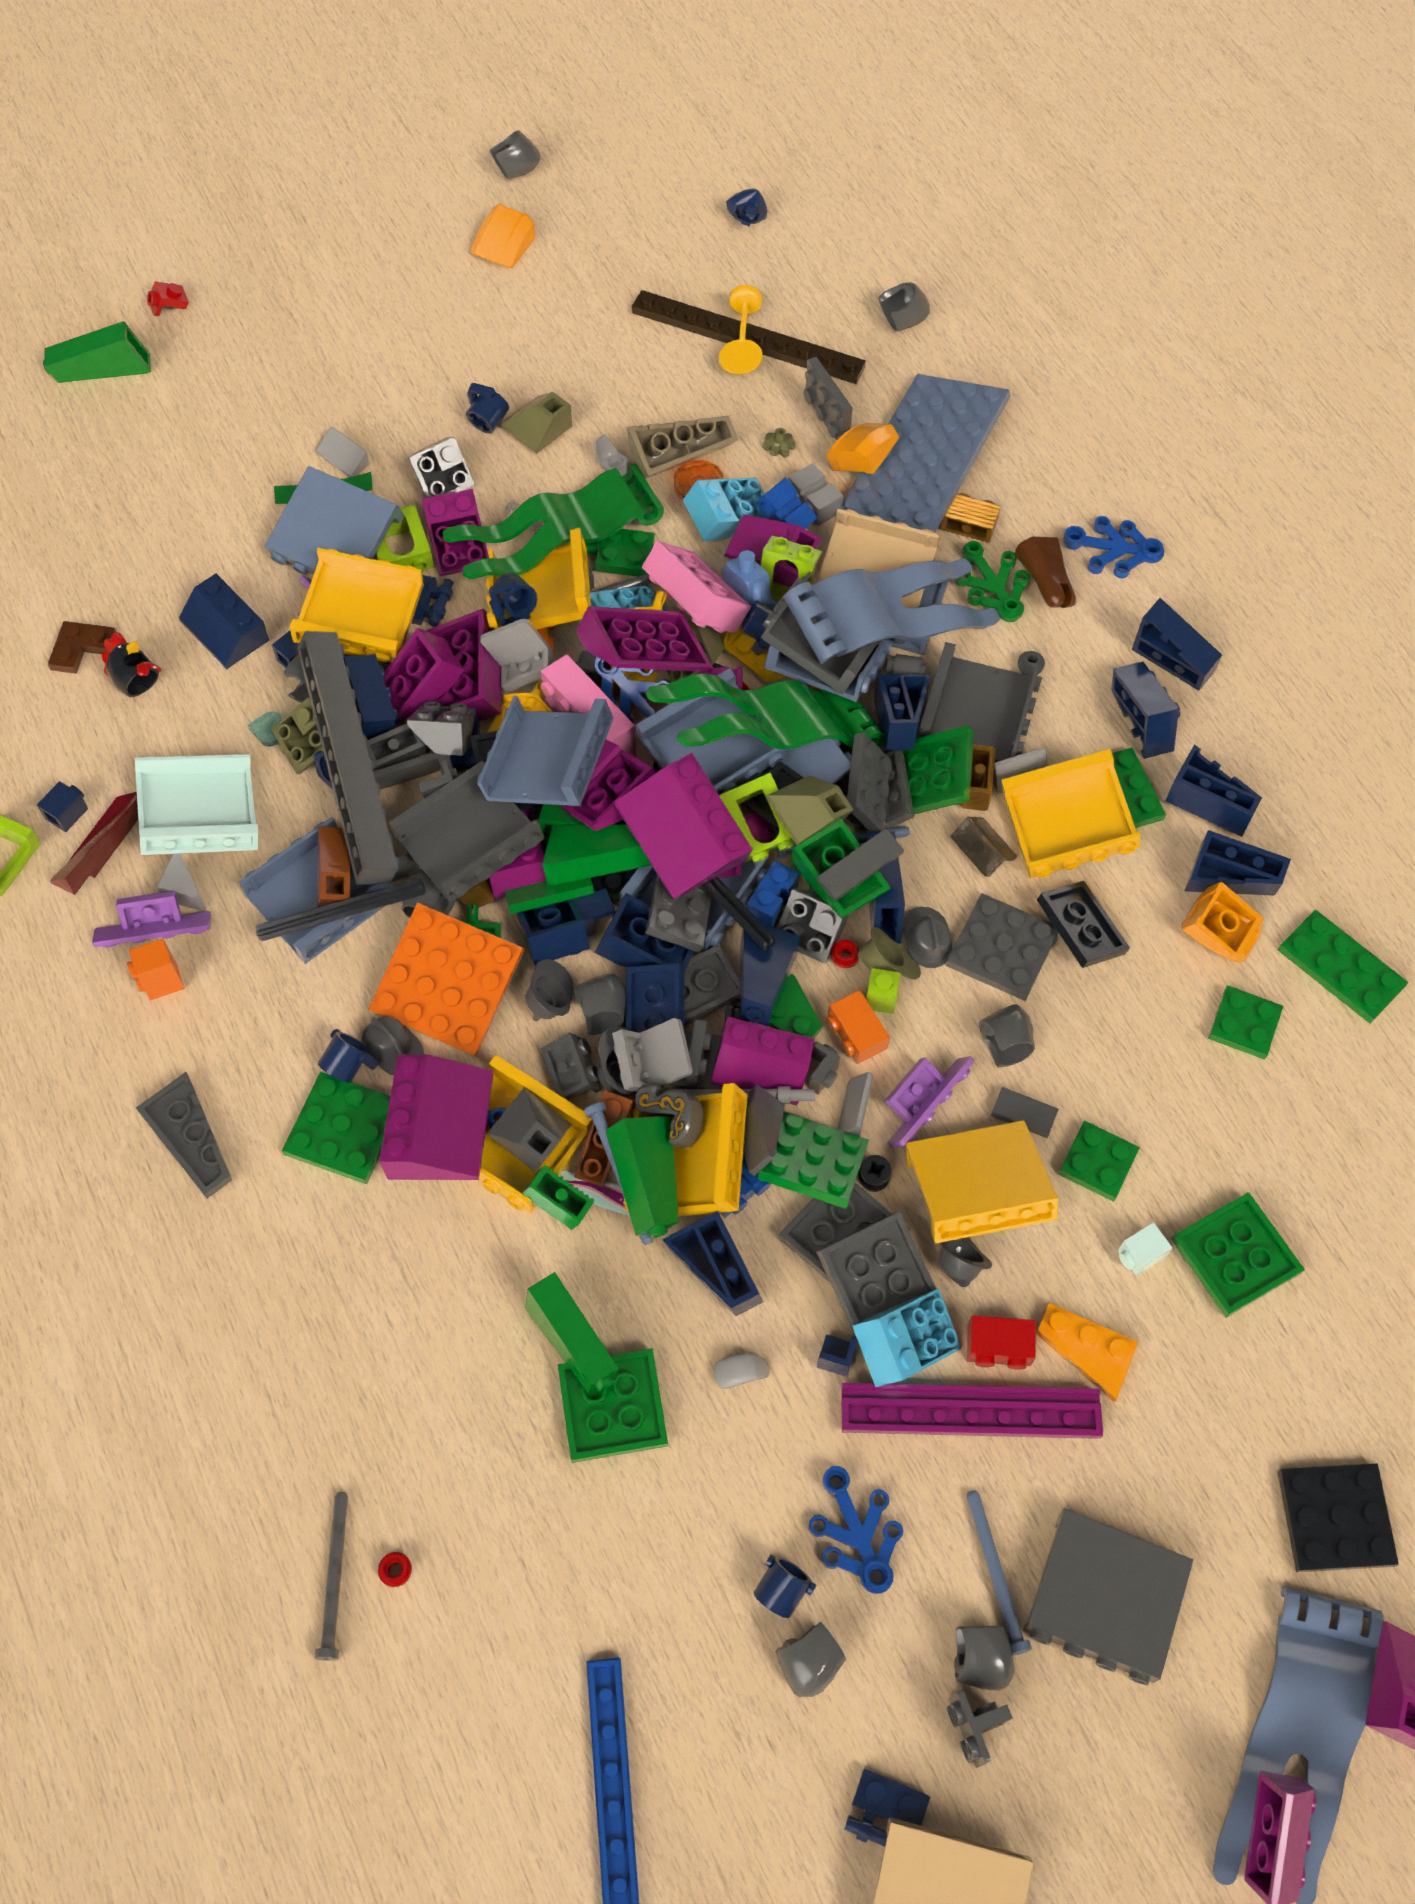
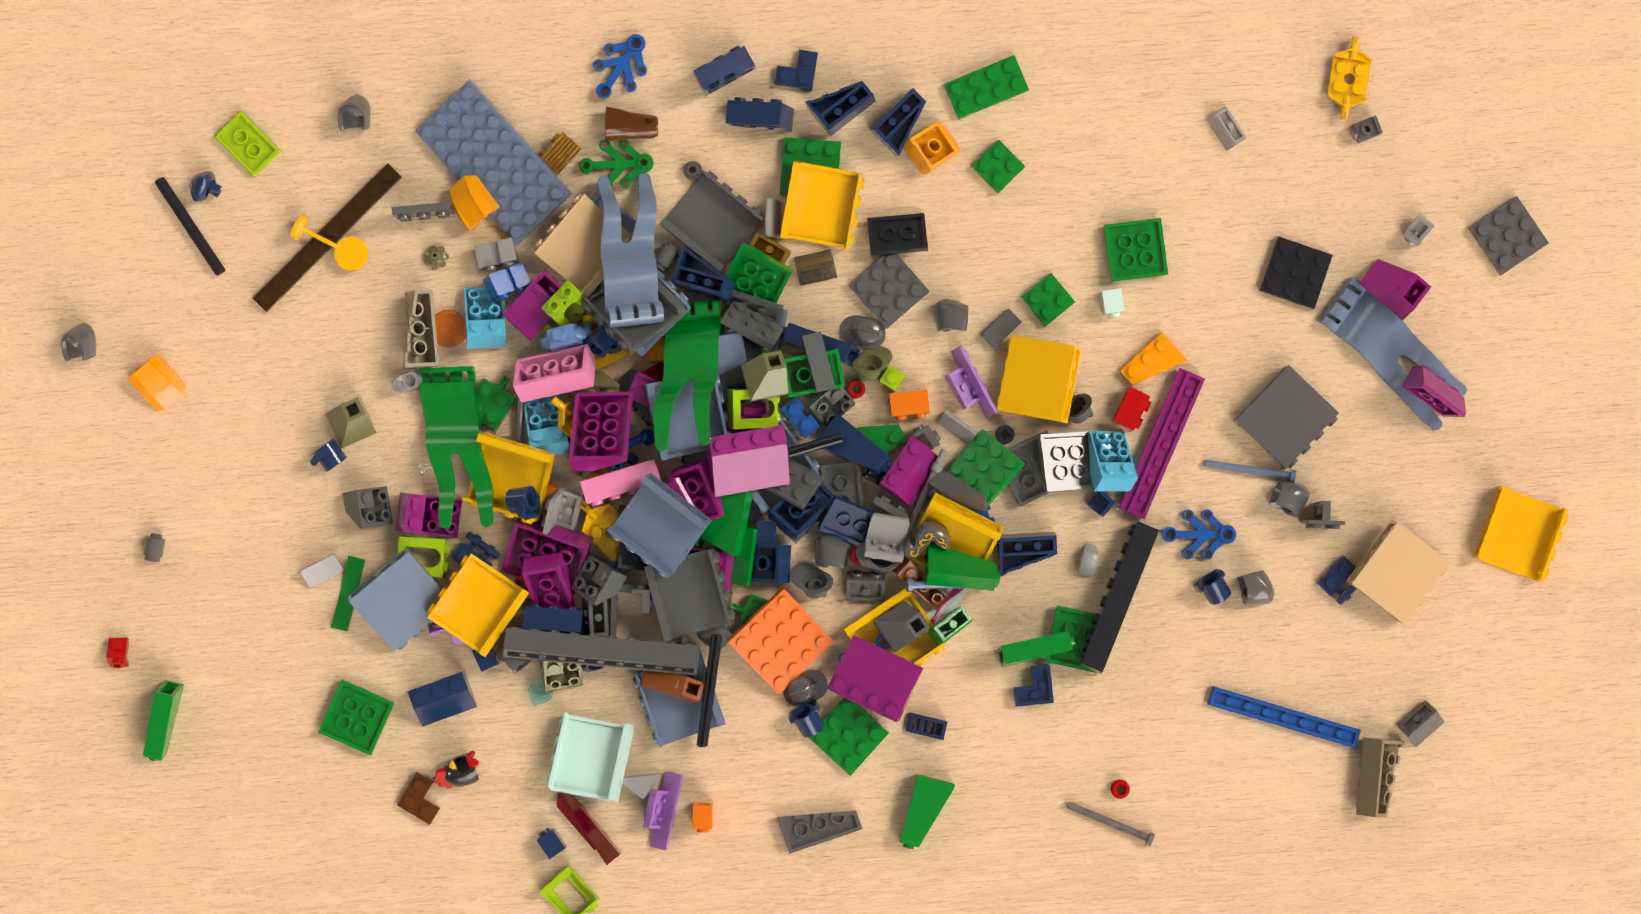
camera: 70 degrees left, 25 degrees up
(166, 544) = (356, 717): none -> green plate
(267, 1272) = (924, 806): none -> green slope
(306, 291) = (154, 547): none -> dark grey brick
(400, 1253) = (921, 717): none -> dark blue slope
(507, 1376) = (1039, 692): none -> dark blue plate
(696, 213) = (190, 226): none -> black axle
(703, 1433) = (1118, 598): none -> black brick
(816, 236) = (247, 143): none -> lime tile
(1223, 743) = (801, 76): none -> dark blue plate

